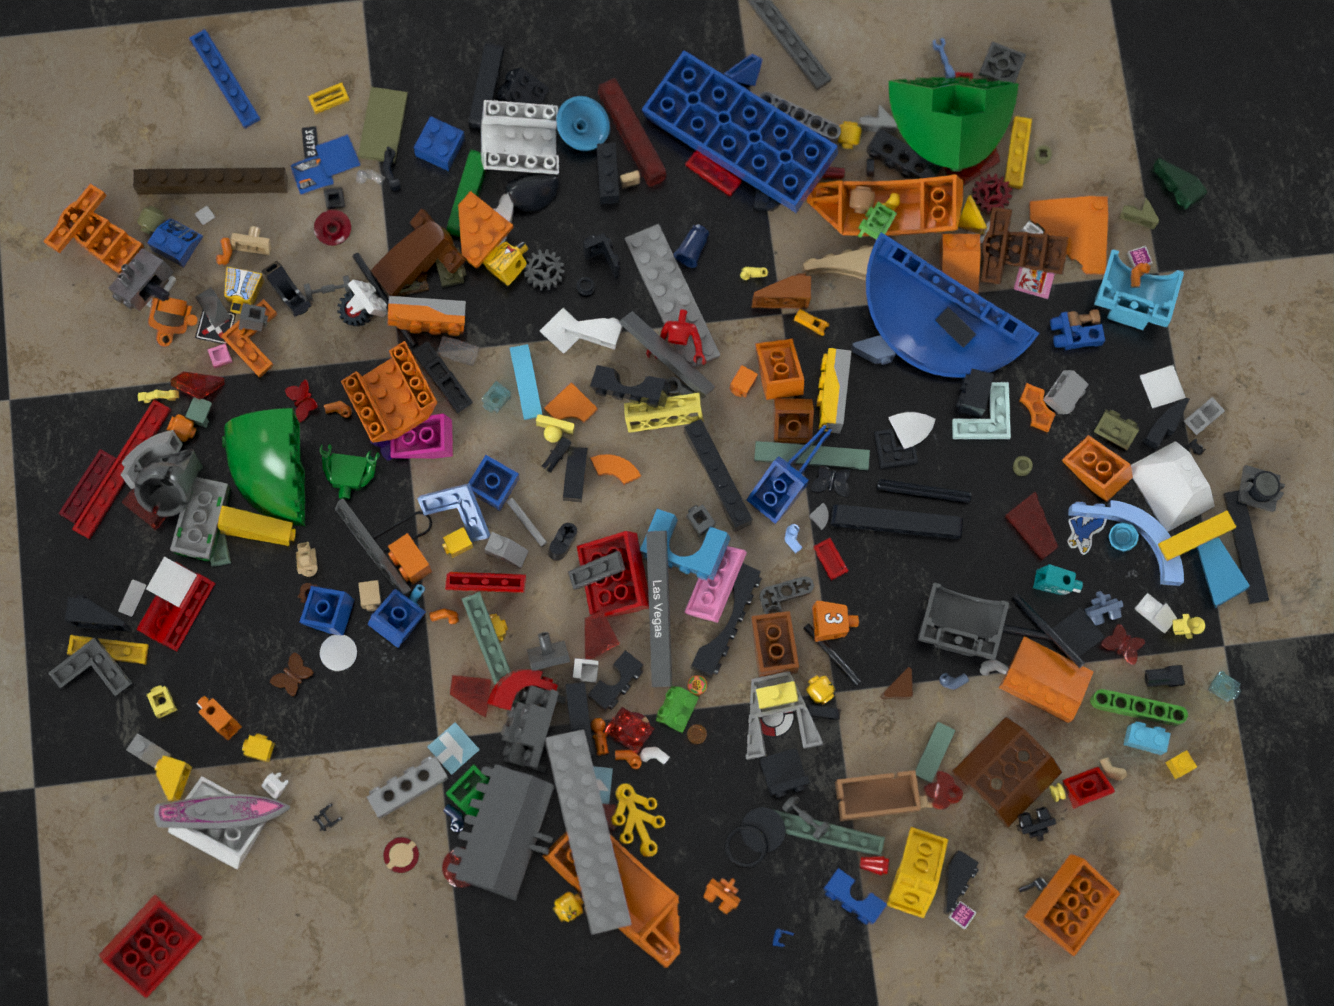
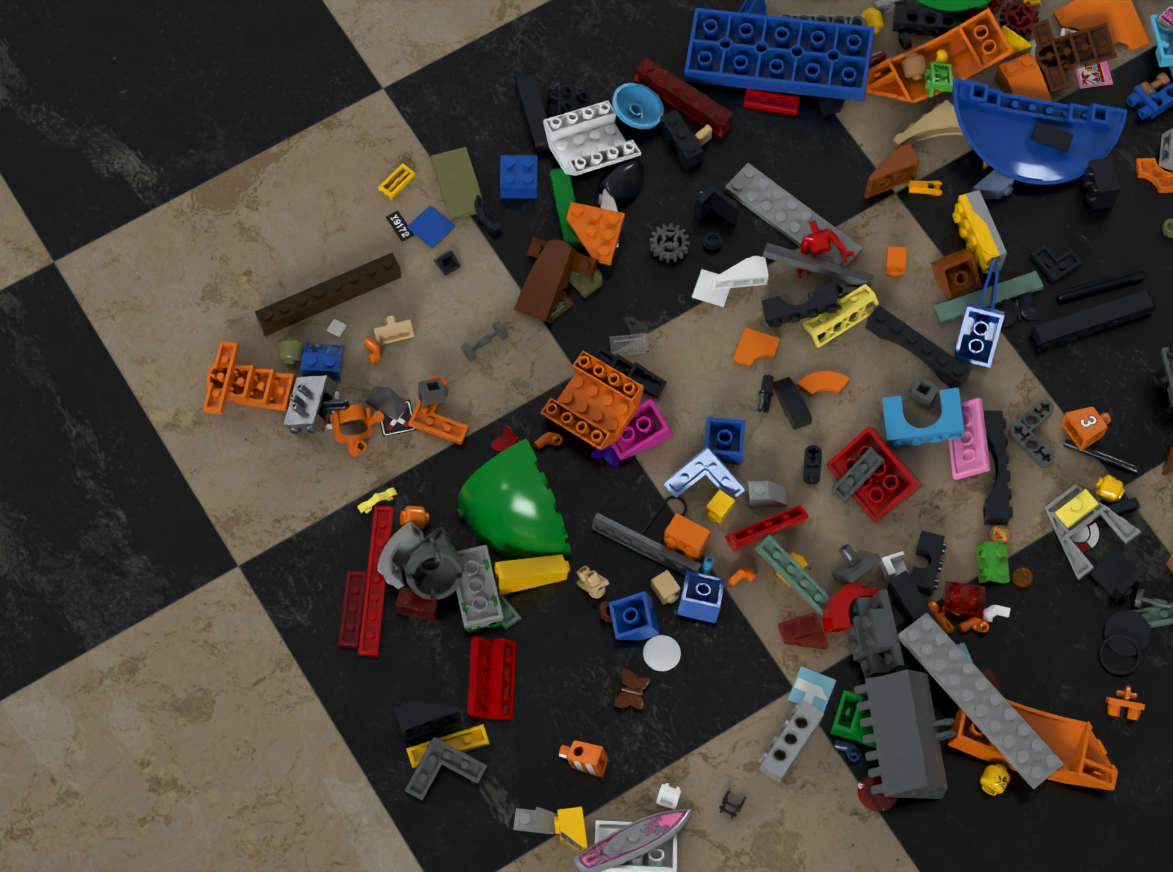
camera: 20 degrees left, 10 degrees down
(132, 598) = (445, 689): white sticker -> none
(154, 698) = (523, 760): light yellow brick -> none
(171, 581) = (478, 655): white sticker -> none
(197, 384) = (408, 474): clear red wing -> none
(198, 412) = (424, 496): sand green panel -> none
(219, 355) = (415, 441): bright pink tile -> none
(224, 78) = (294, 204): blue tile -> none
(242, 287) = (404, 373): torso -> none
(258, 747) = (636, 769): yellow brick -> none
(286, 289) = (447, 358): black arch -> none
(310, 175) = (414, 253): blue sticker -> none
(332, 219) = (460, 280): dark red dish -> none
(348, 471) = (588, 488): green torso -> none
(361, 304) = (521, 343): white plate -> none
(362, 175) = (469, 229): clear arm -> none
(379, 291) = (537, 328): black piece -> none
(401, 855) = (816, 806): sticker -> none
(427, 315) = (588, 322): orange piece -> none
(496, 391) = (686, 362): clear light blue brick -> none
(506, 261) = (633, 249): yellow torso -> none
(526, 381) = (705, 343): medium azure slope -> none
(526, 521) = (770, 463): light grey bar -> none
(554, 427) = (751, 370): light yellow tile -> none
(598, 635) = (889, 530): clear red wing -> none
(635, 817) = (994, 658): yellow plant -> none
(659, 609) = (932, 482): dark grey tile -> none
(692, 246) = (788, 168): dark blue plant -> none
(748, 272) = (853, 167): light yellow arm -> none
(774, 644) = (1049, 467): dark orange slope -> none
(779, 369) = (922, 237): orange slope -> none
(791, 538) = (1009, 374): light blue arm -> none
(820, 516) = (1024, 345): light grey tile -> none
(830, 559) = (1053, 376): red tile -> none
(911, 427) = (1060, 237): white sticker -> none
(994, 428) = (1130, 206): light aqua plate -> none

